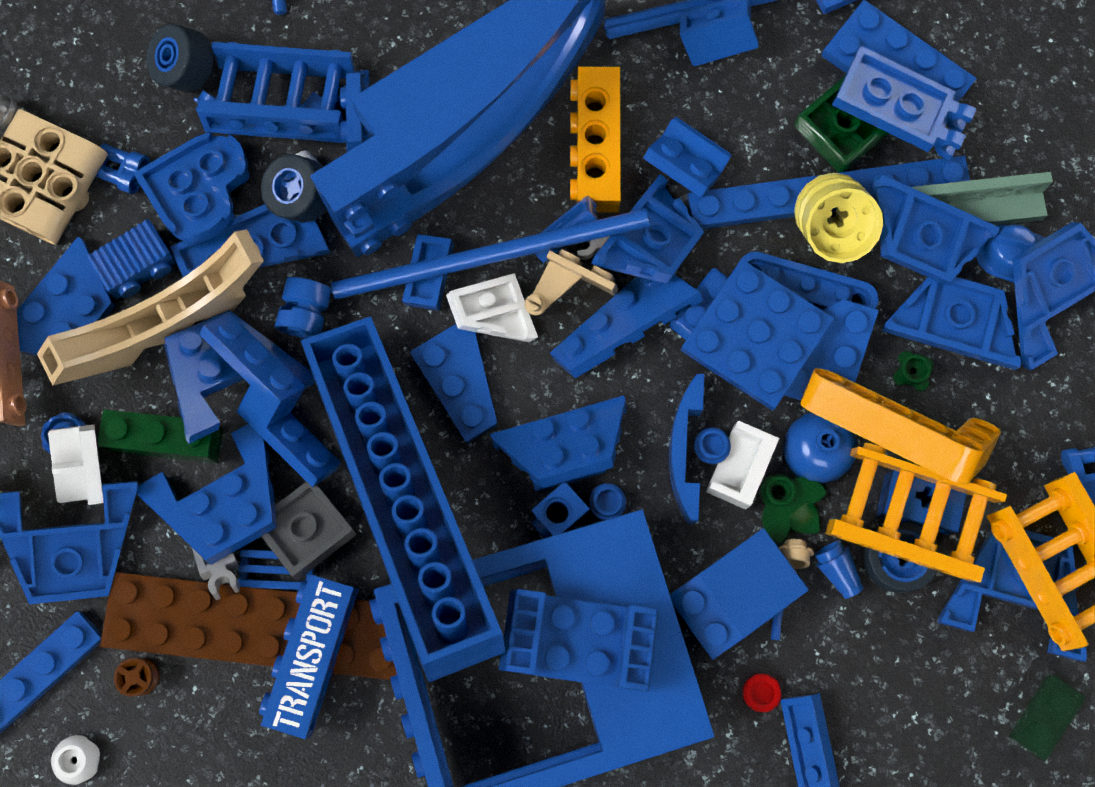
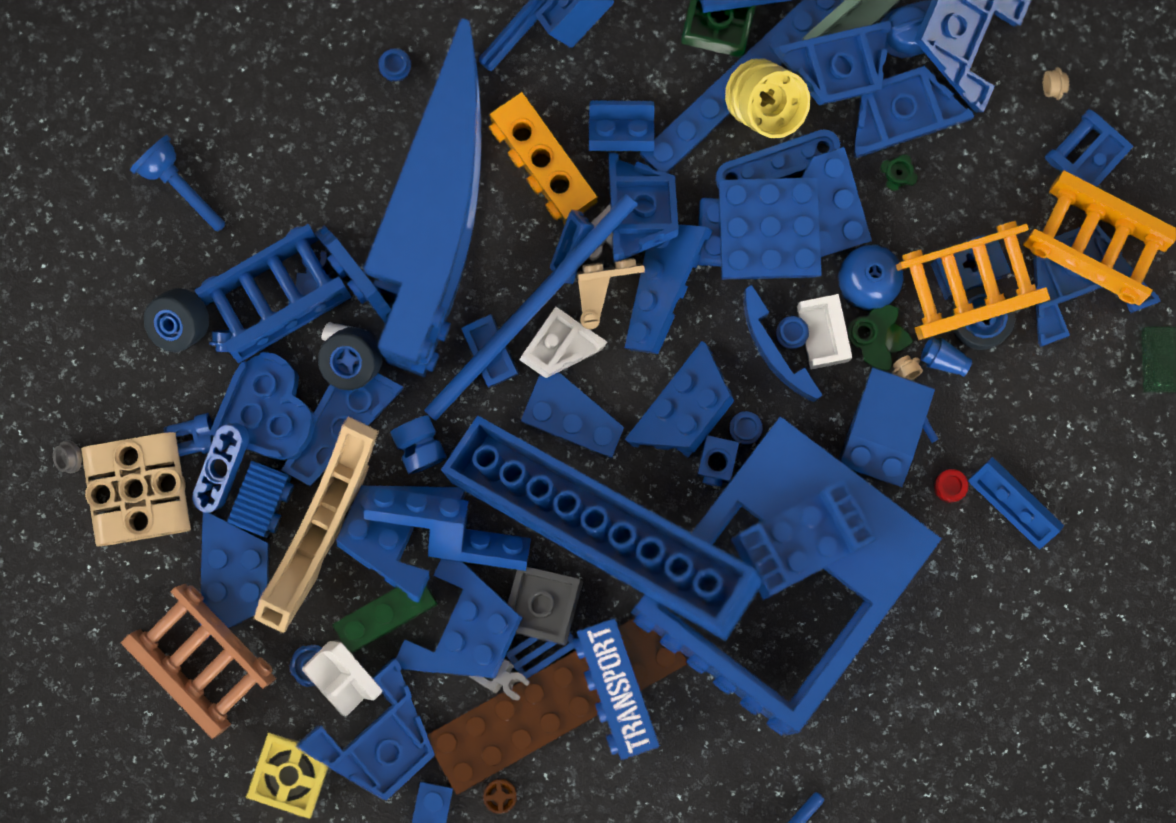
camera: 40 degrees left, 5 degrees up
(139, 193) = (208, 475): none -> blue beam
(901, 430) = (922, 227): light orange beam -> none

